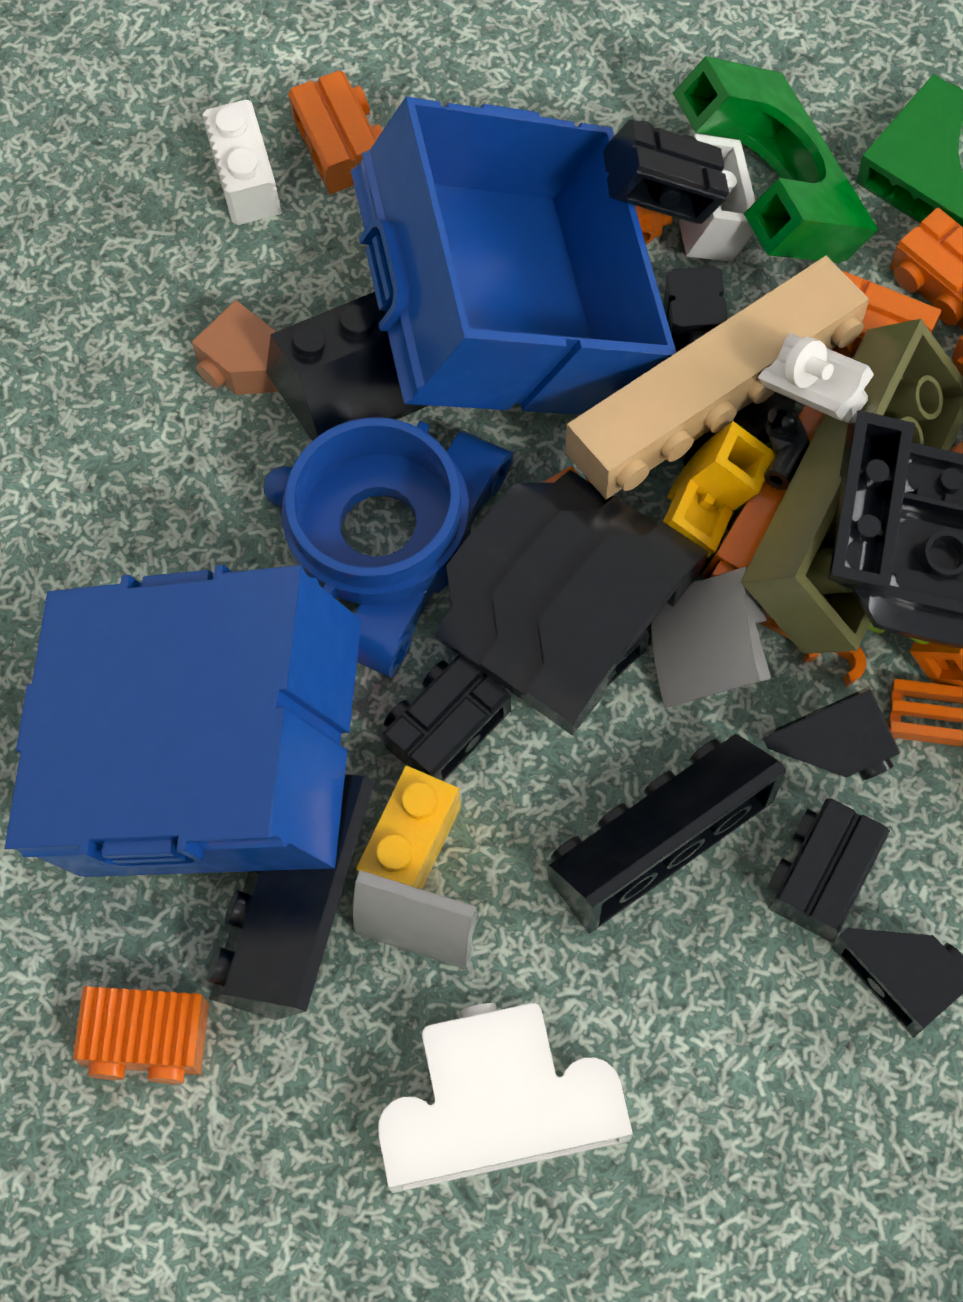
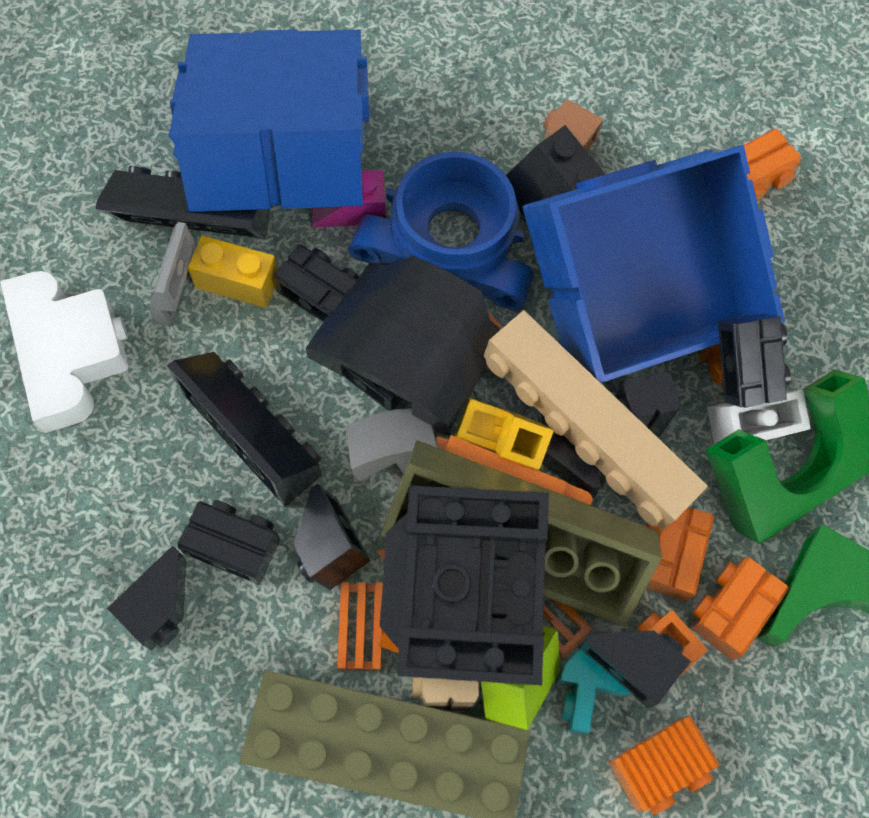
camera: 75 degrees right, 0 degrees up
(141, 1033) = (103, 143): orange brick -> none
(242, 162) = (715, 113): white brick -> none
(788, 444) = (546, 475): black arm -> none
(818, 377) = (586, 477): white hips -> none

